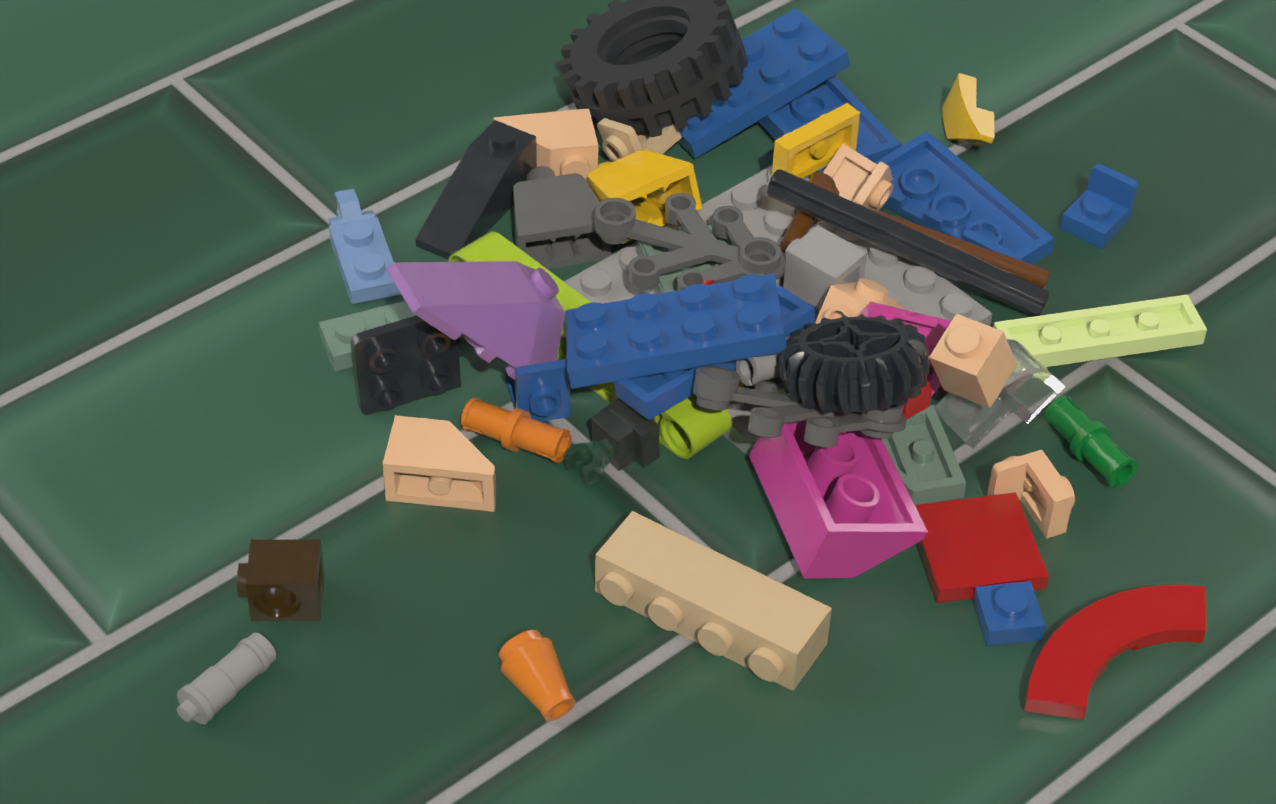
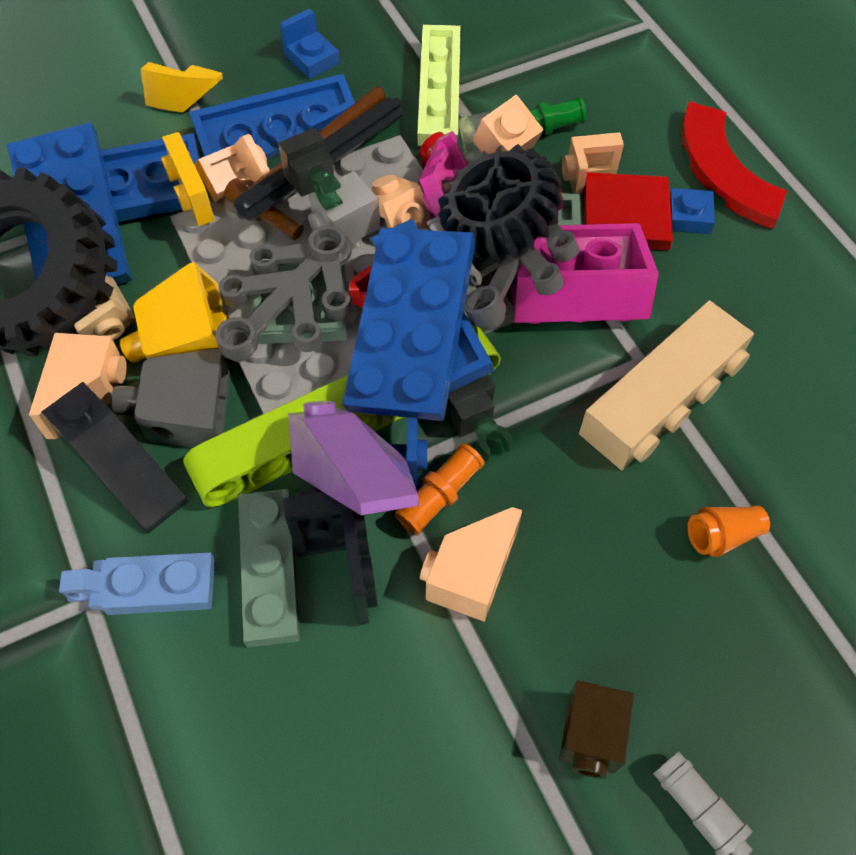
camera: 75 degrees left, 15 degrees up
(837, 206) = (310, 167): none -> pearl dark grey piece

